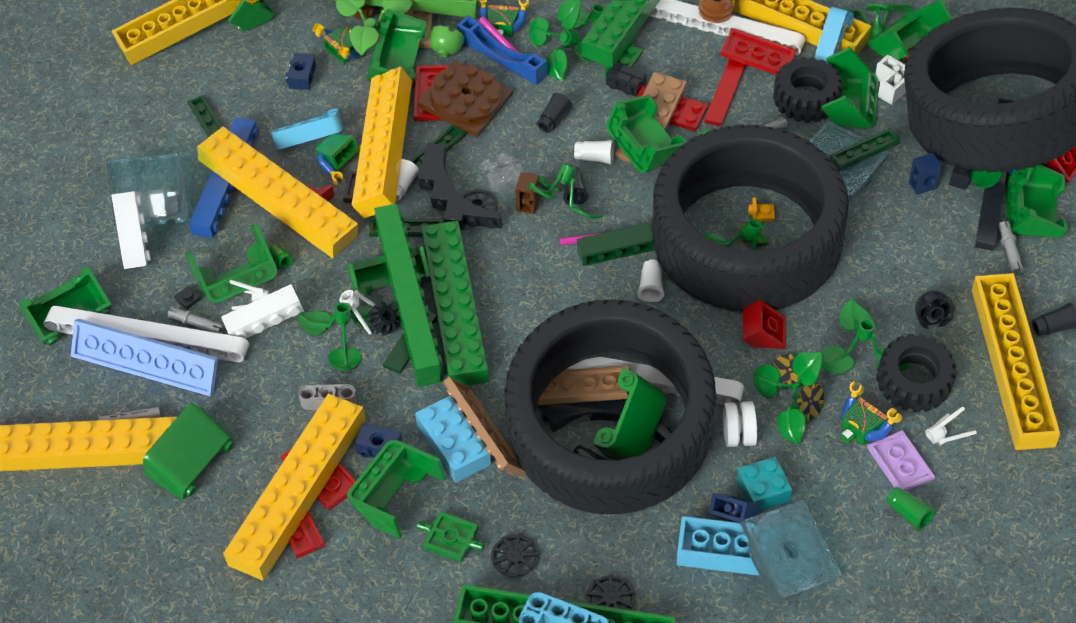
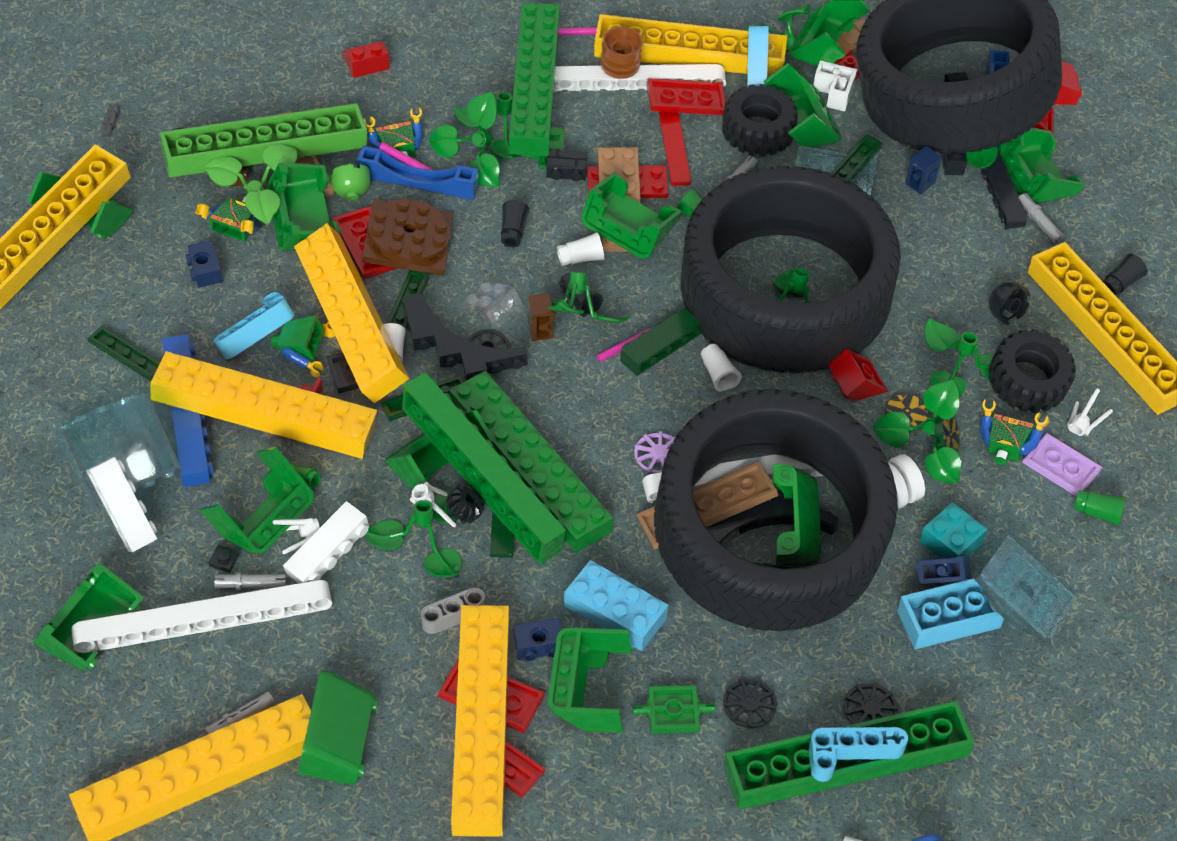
camera: 30 degrees left, 0 degrees up
(144, 357) = (218, 642): light blue plate -> none
(486, 428) = (649, 583): medium nougat plate -> none
(761, 212) = (784, 260): light orange bracket -> none

